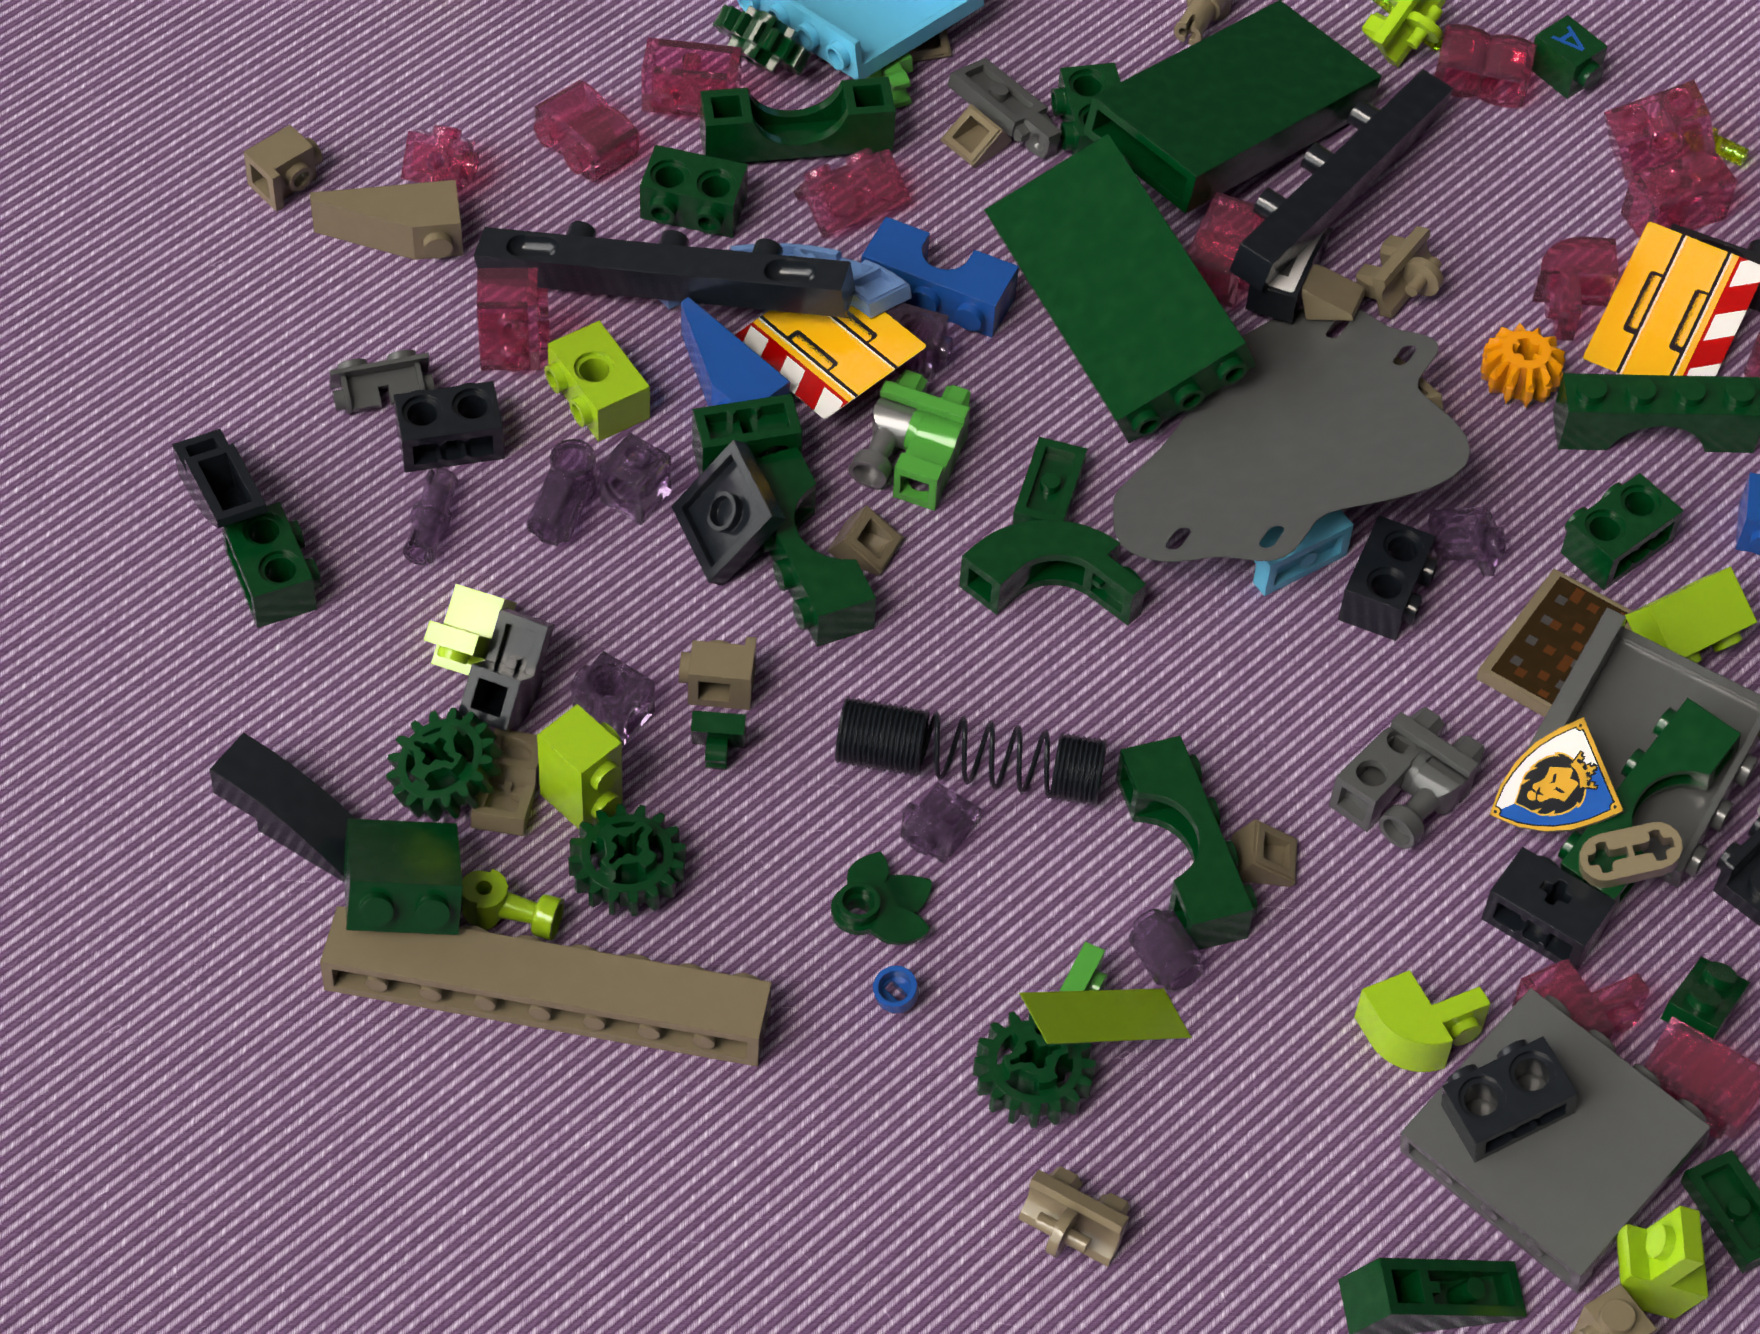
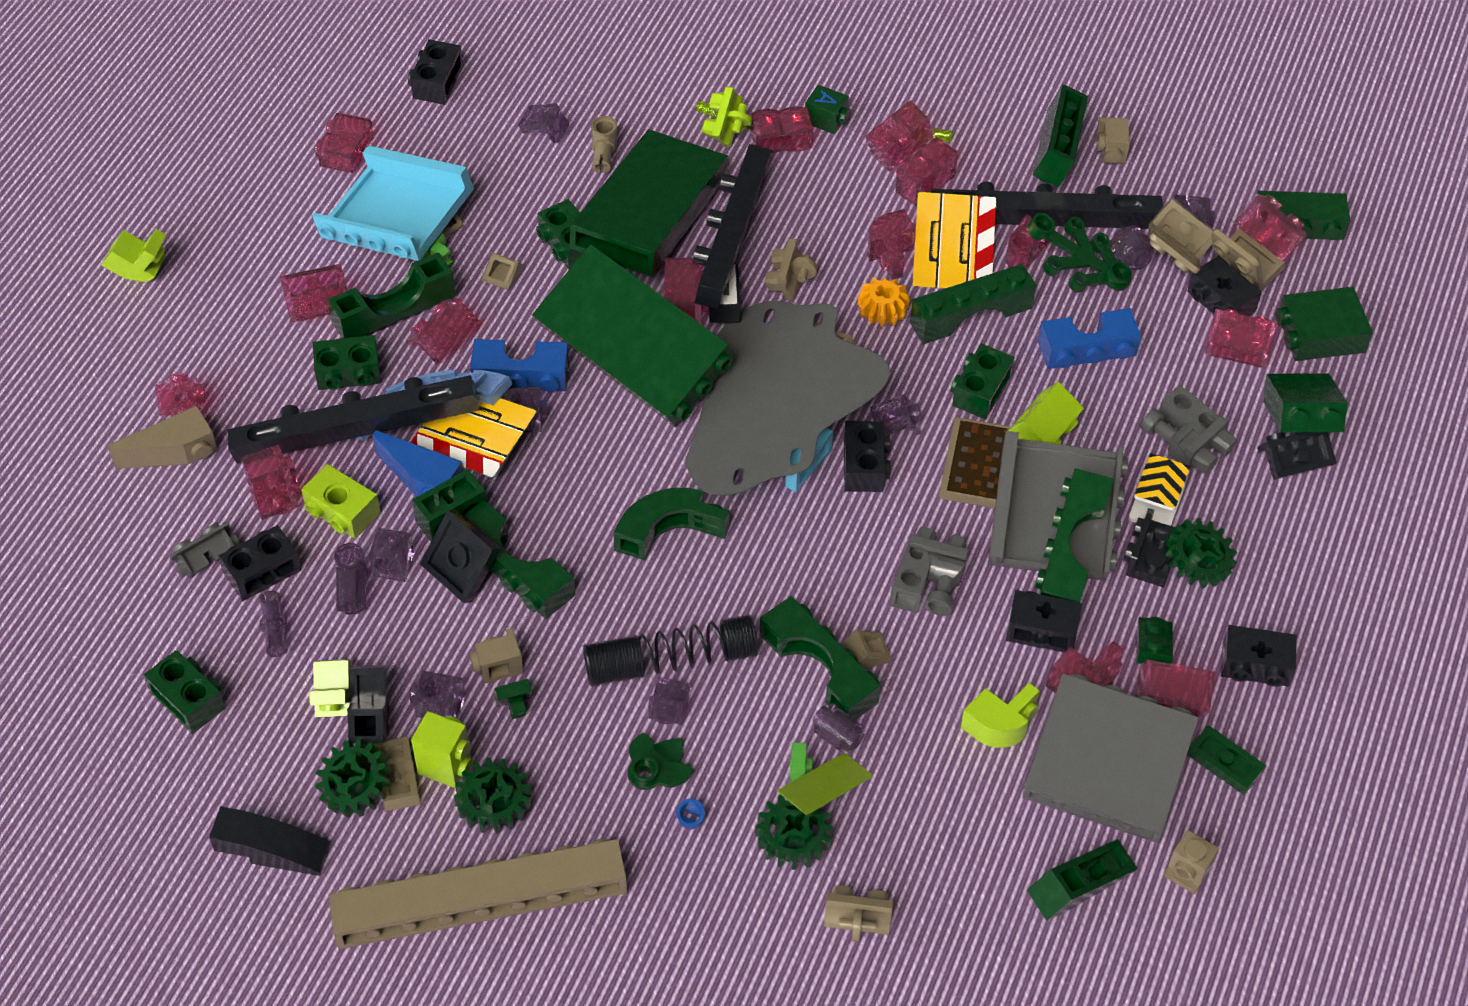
camera: 20 degrees left, 0 degrees up
(217, 479) = (130, 649): black slope -> none
(281, 165) = (78, 433): dark tan brick -> none
(402, 877) = (362, 860): dark green brick -> none
(488, 900) = (418, 853): lime leg -> none
(586, 131) = (263, 347): clear pink brick -> none
(763, 39) = (350, 252): dark green gear -> none
(867, 540) = (547, 543): dark tan slope -> none
(925, 427) = (553, 461): bright green hips -> none
(1007, 106) = (513, 245): dark grey hinge -> none
(1050, 481) = (642, 468): dark green plate -> none
(1330, 295) = (757, 298): dark tan slope -> none
(1517, 1110) = (1085, 747): black brick -> none
(1558, 784) = (1020, 545): shield -> none
(1627, 842) = (1076, 565): dark tan beam -> none
(1664, 1263) = (1205, 806): lime brick -> none

